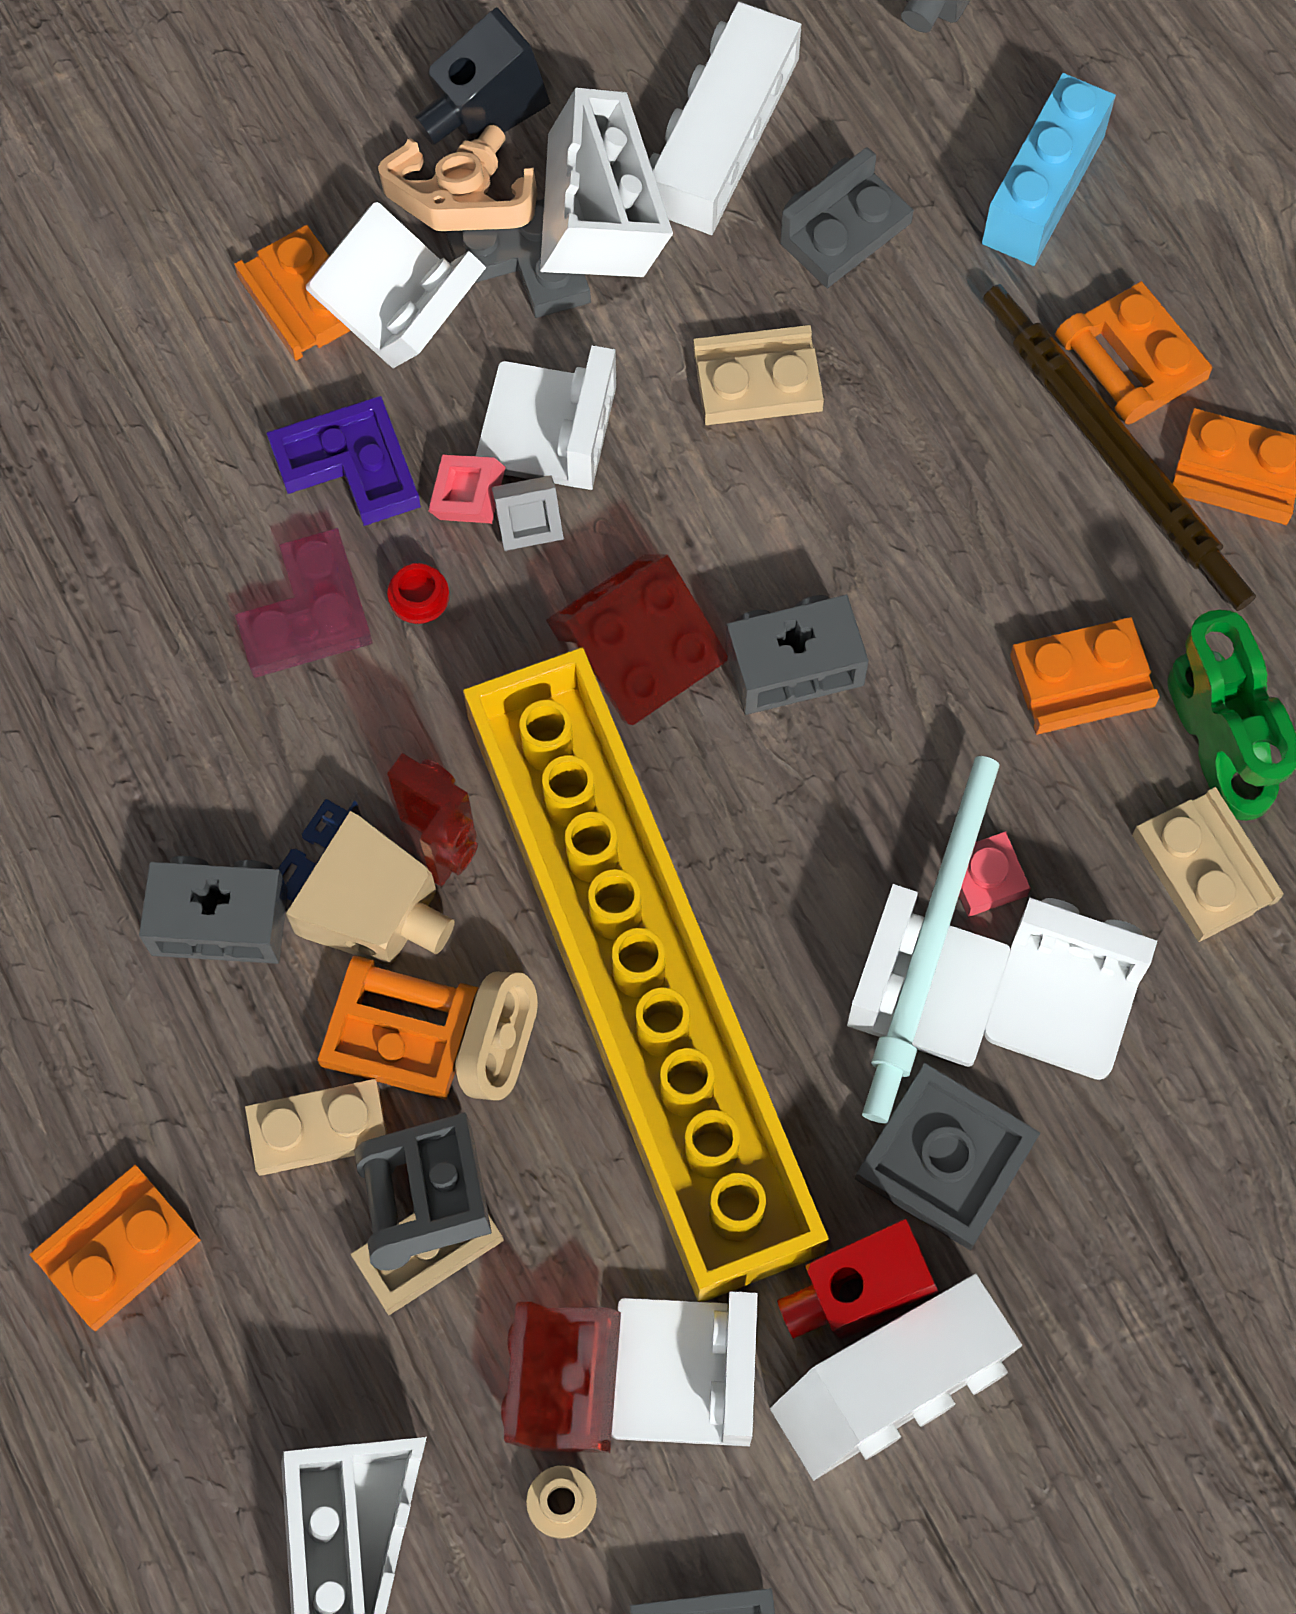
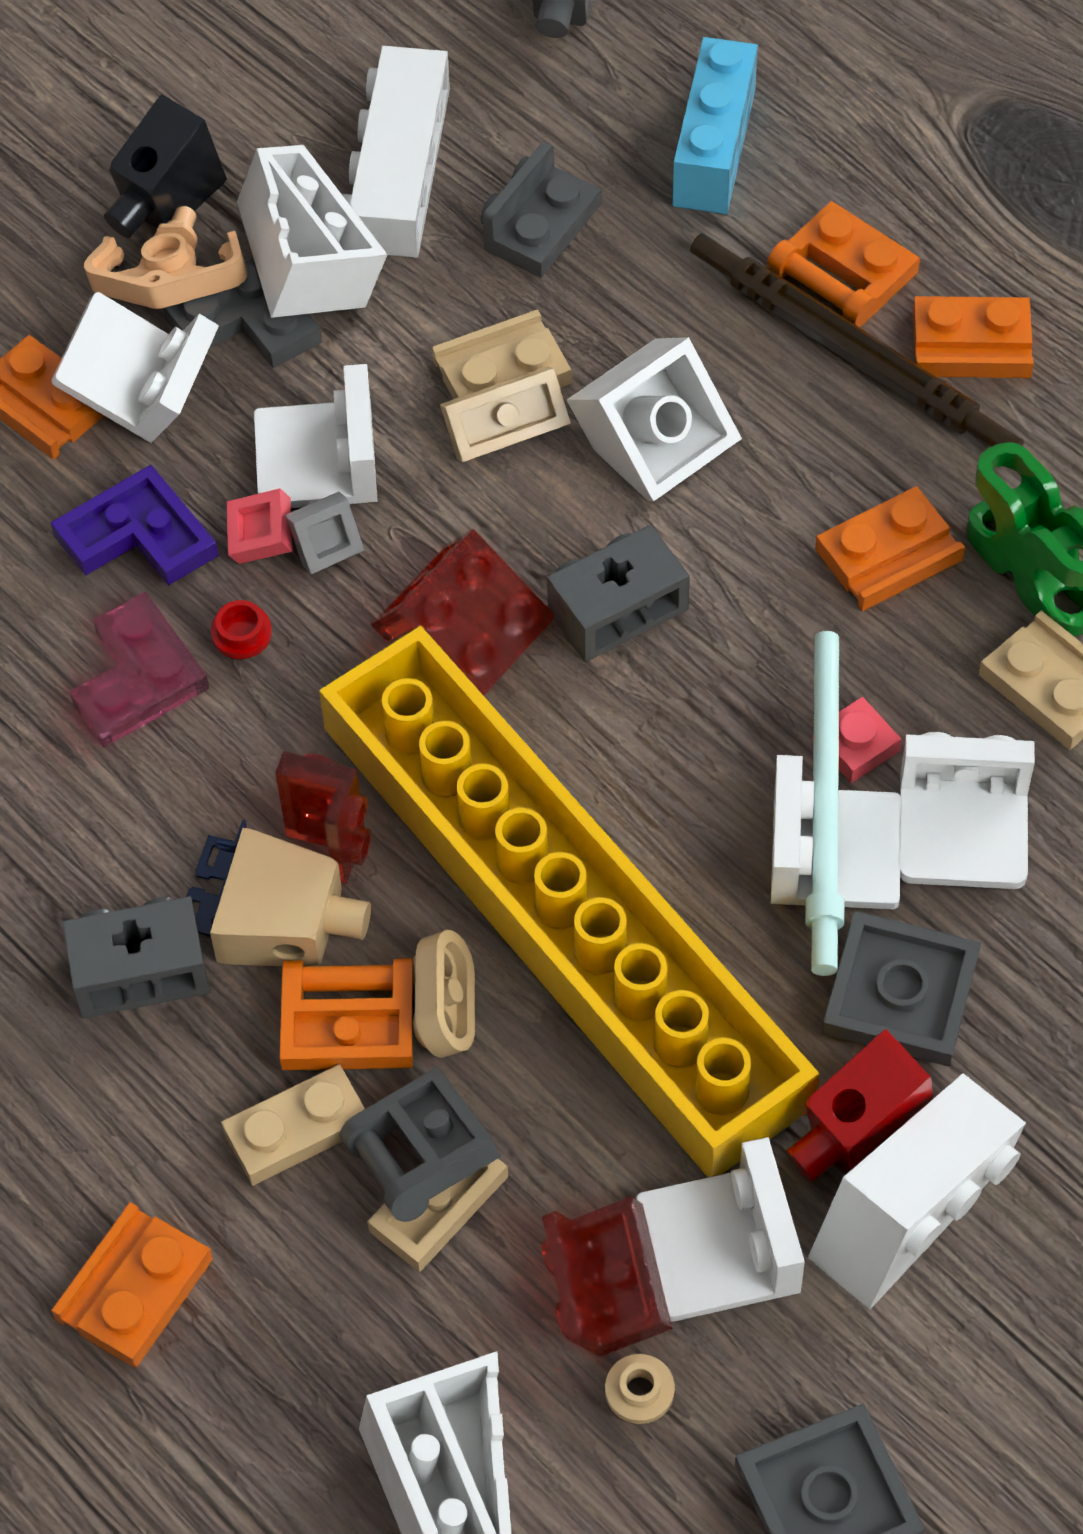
camera: 15 degrees left, 10 degrees down
(743, 431) = (505, 414): none -> tan plate
(891, 473) = (655, 416): none -> white slope

